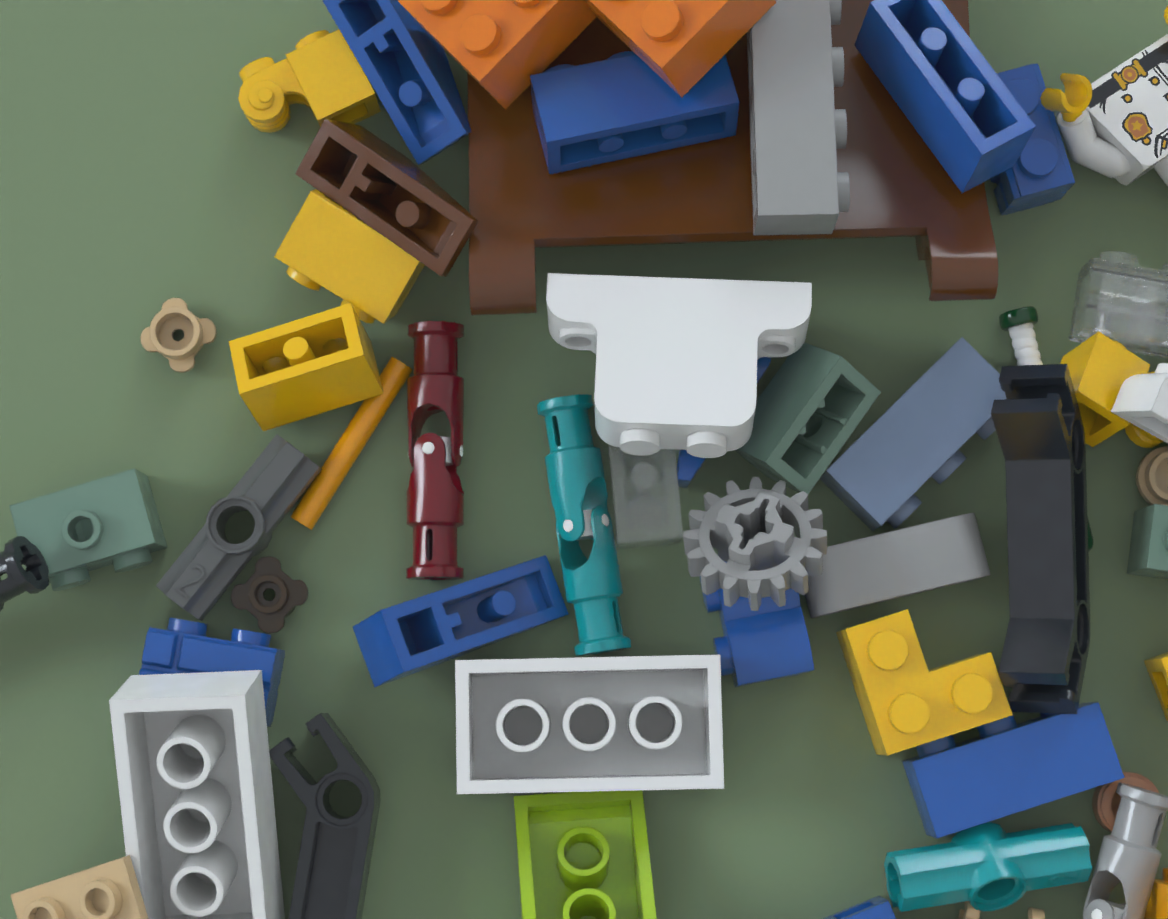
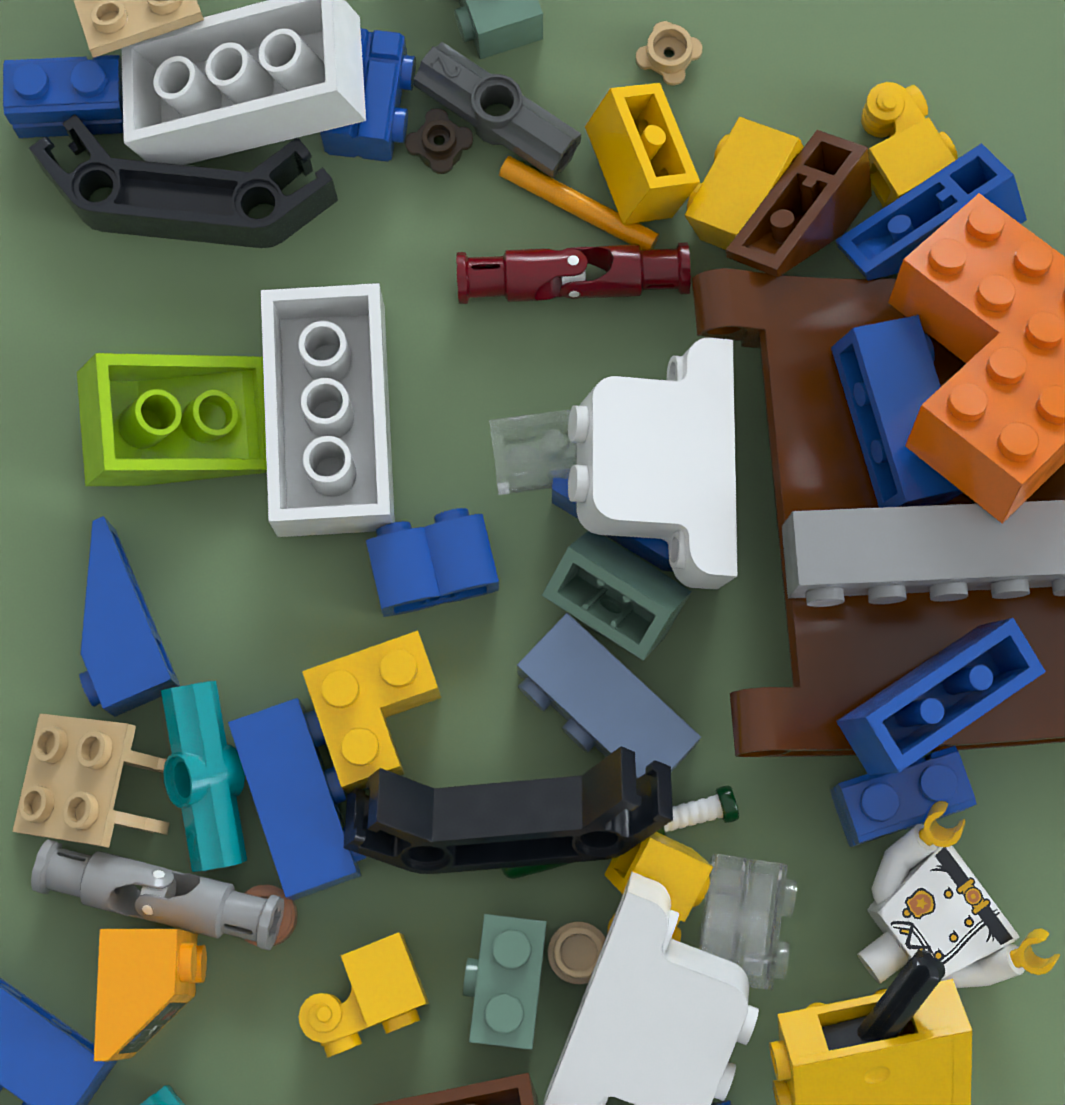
camera: 90 degrees right, 5 degrees down
(458, 620) = (421, 302): blue slope -> none
(582, 513) = (466, 411): teal piece -> none
(757, 542) = (493, 543): light grey gear -> none
(898, 565) = (483, 686): light grey beam -> none

